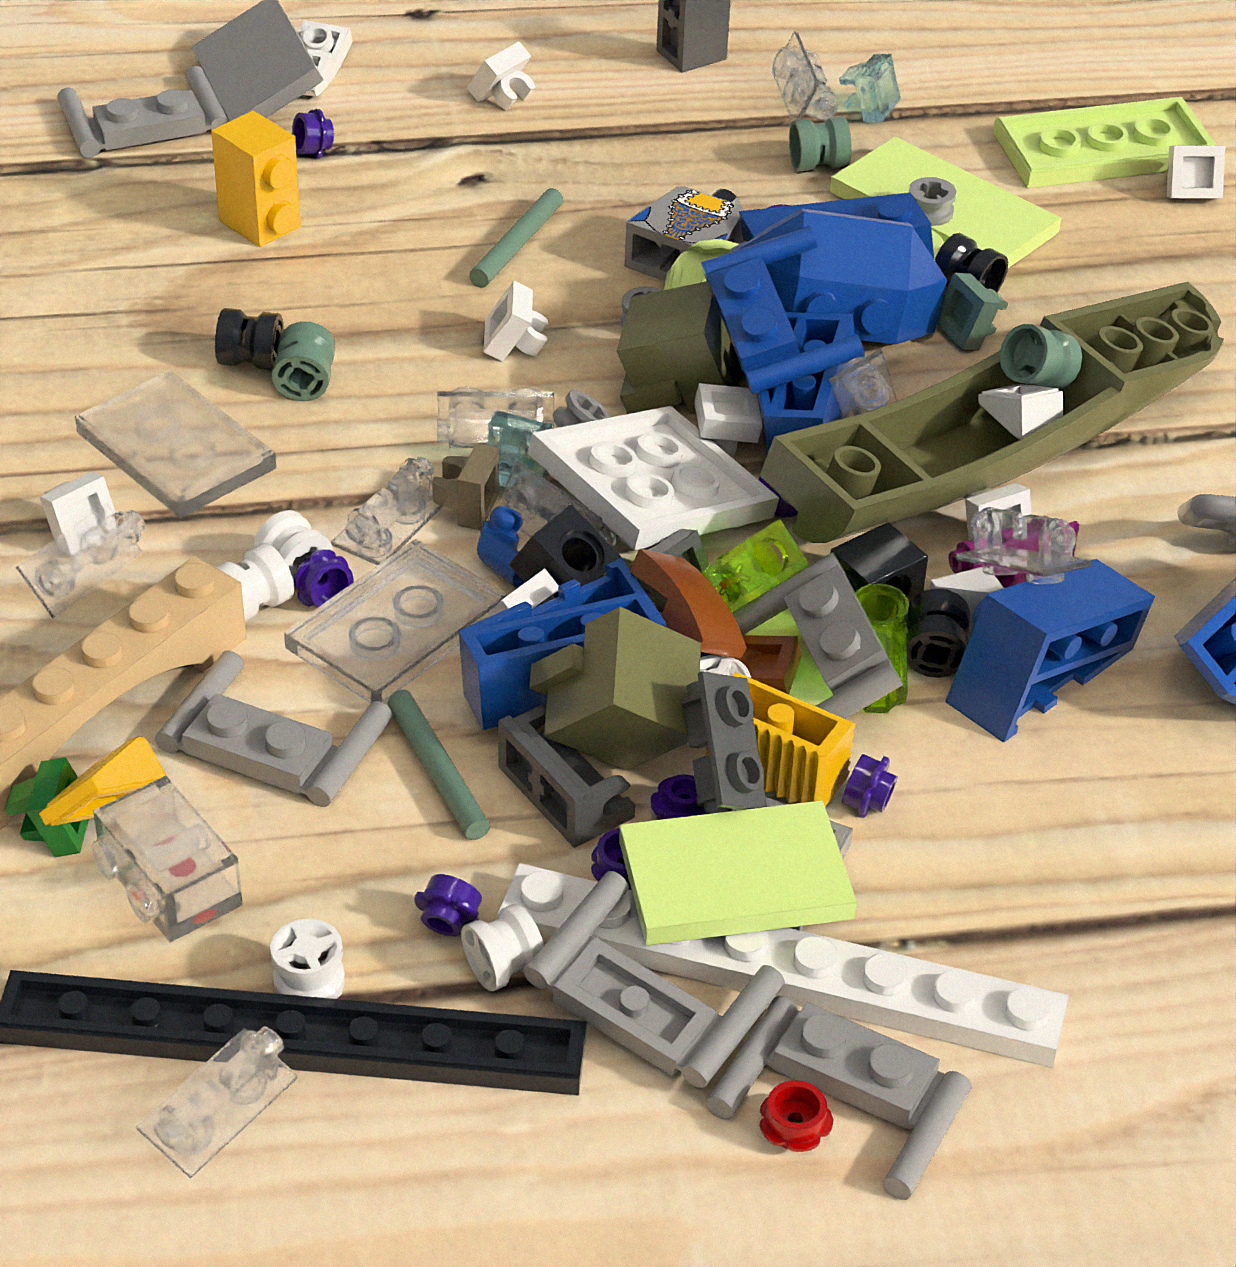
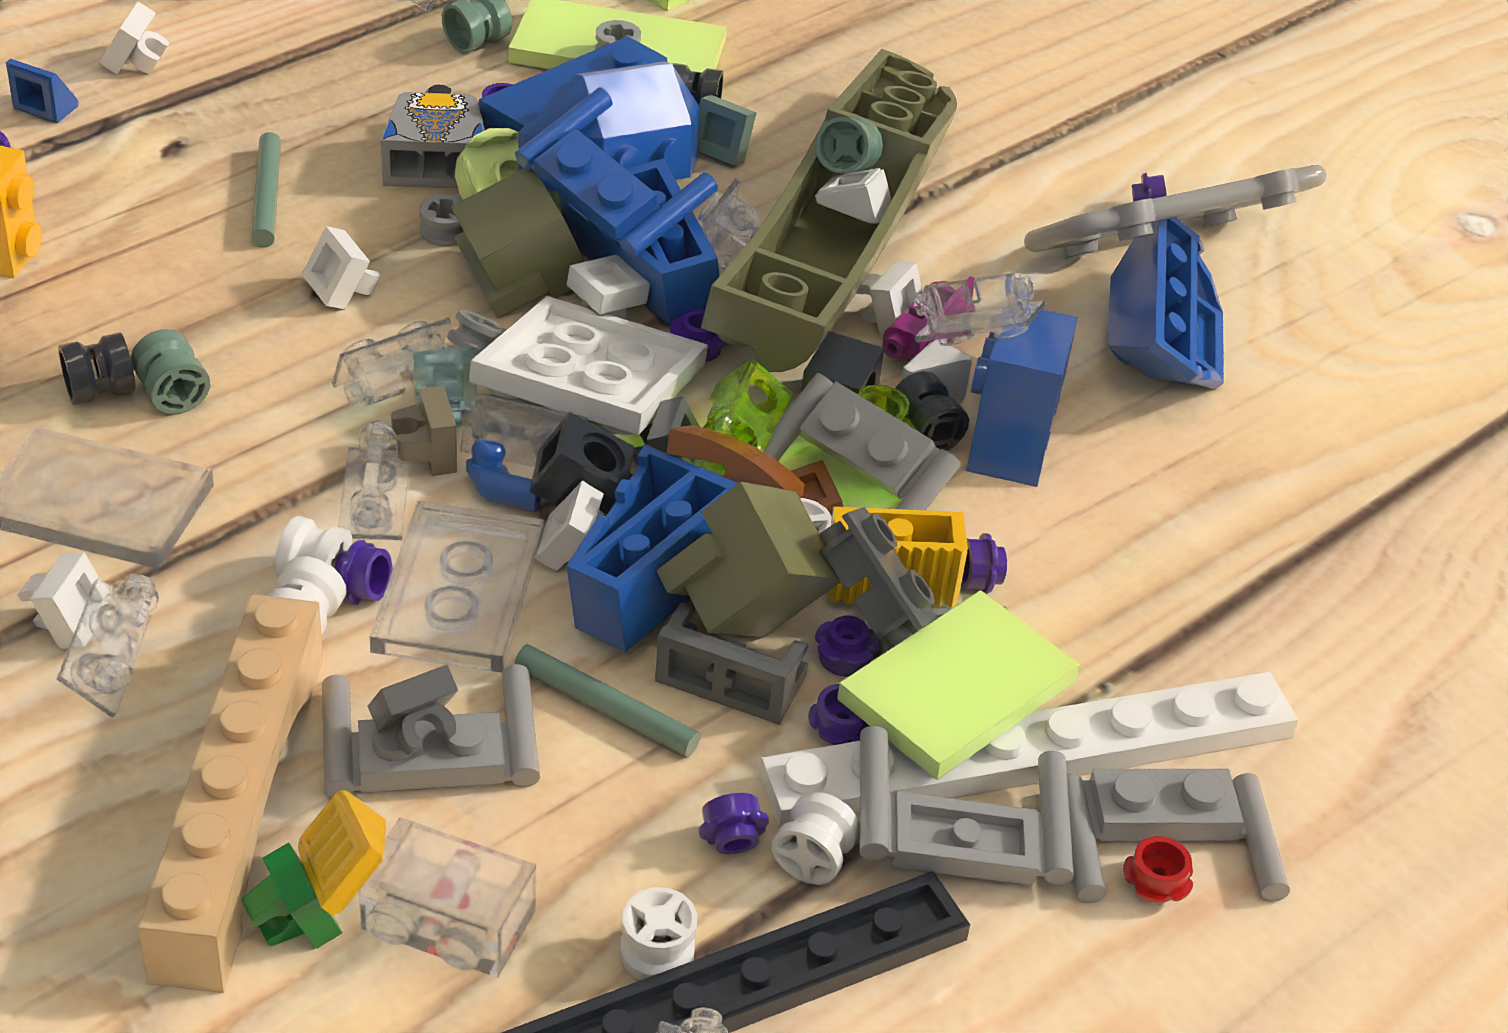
camera: 35 degrees left, 0 degrees up
(245, 687) = (414, 701): none -> dark grey tile
(393, 99) = (39, 92): none -> blue slope

